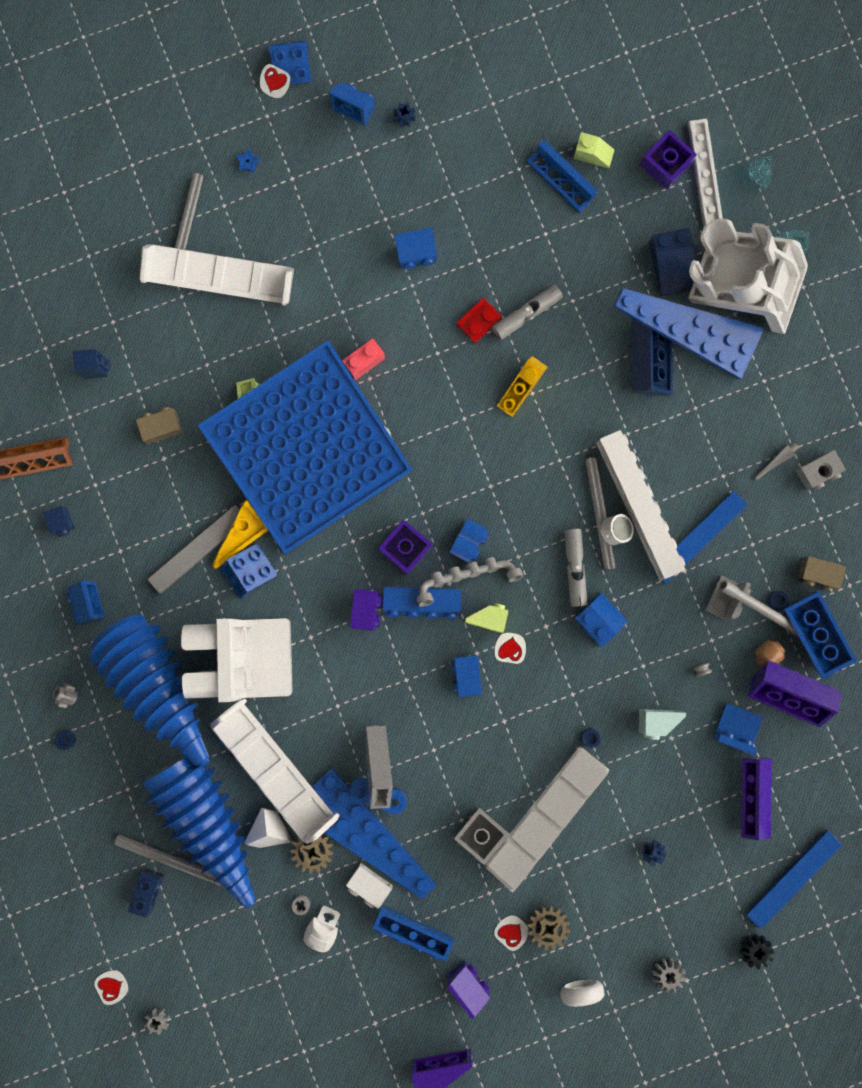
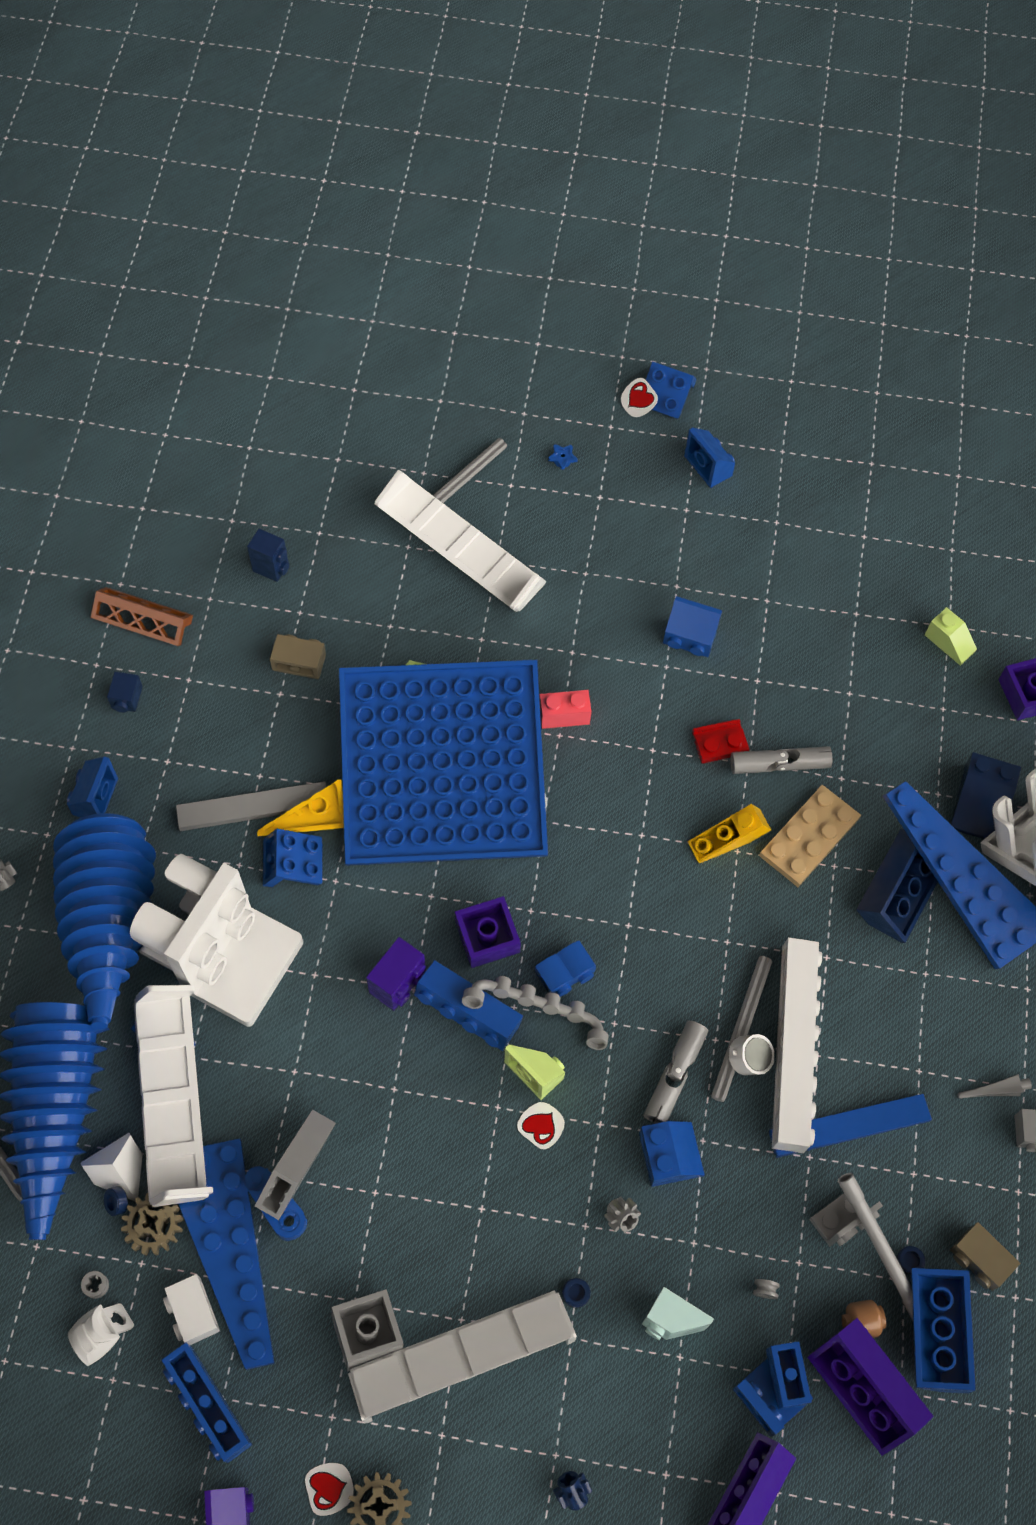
camera: 25 degrees right, 20 degrees down
(280, 851) = (115, 1201): none -> dark blue tile
(404, 120) = (758, 496): dark blue gear -> none
(467, 676) = (469, 1124): blue brick -> none
(566, 171) = (909, 641): blue fence -> none
(574, 355) = (810, 835): none -> tan plate
(592, 676) = (622, 1214): none -> light grey gear
(744, 716) = (788, 1375): none -> blue brick

